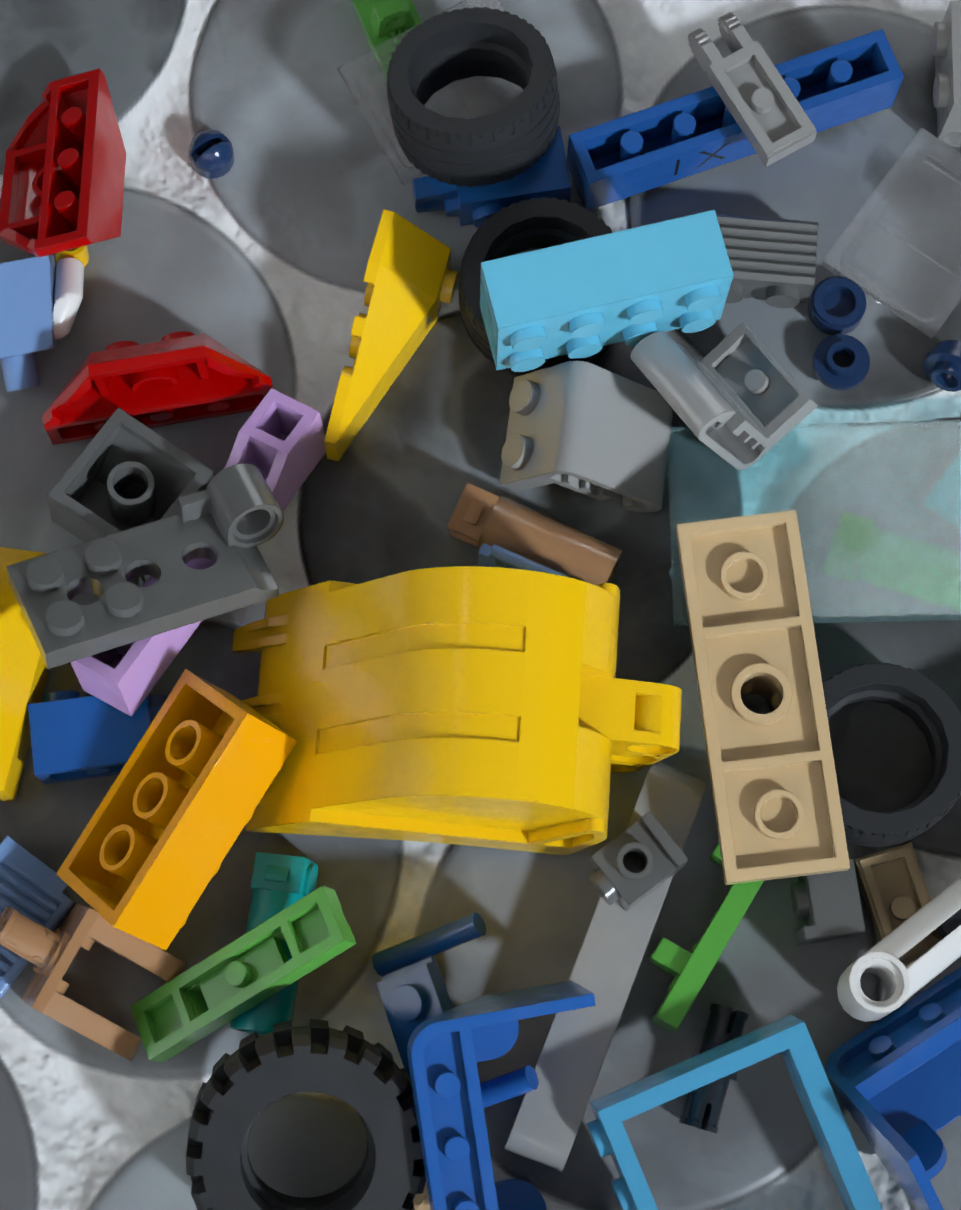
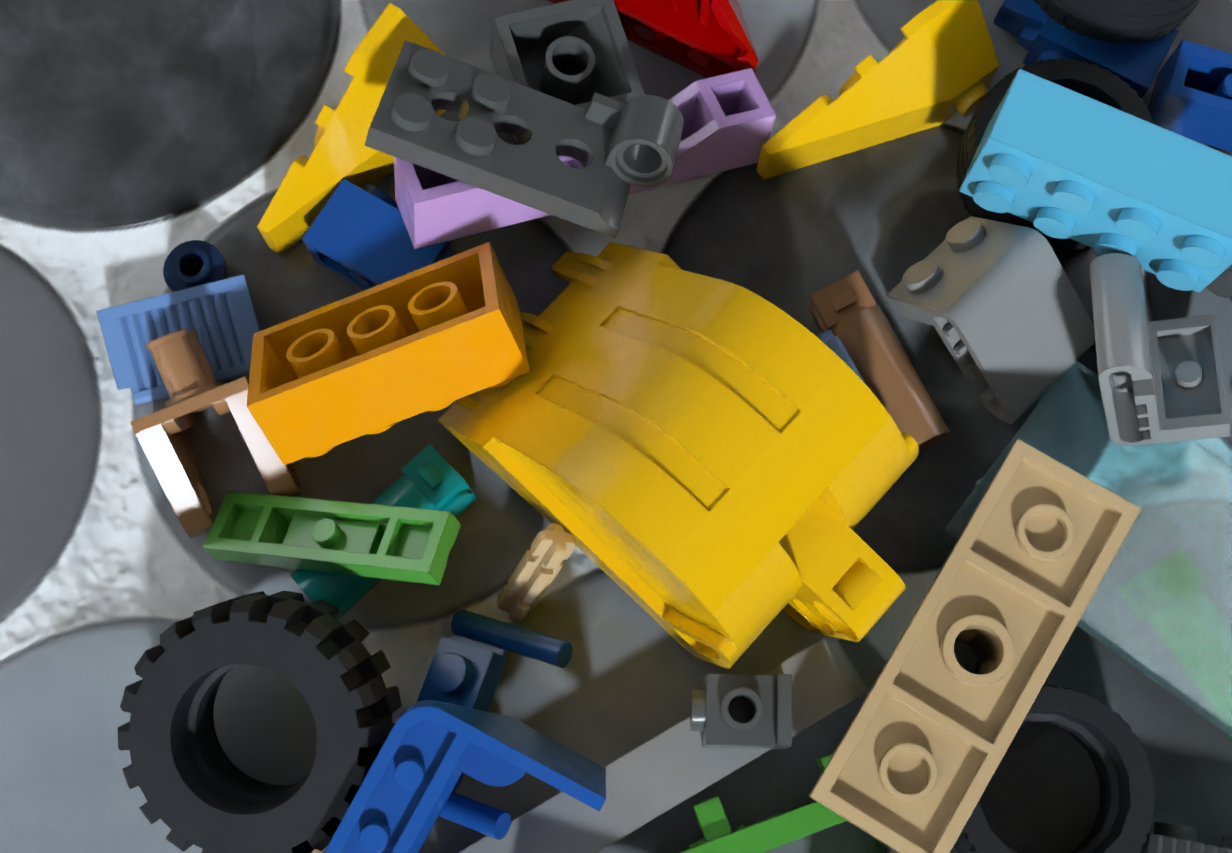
camera: 40 degrees right, 0 degrees up
(410, 882) = (536, 571): none -> tan axle

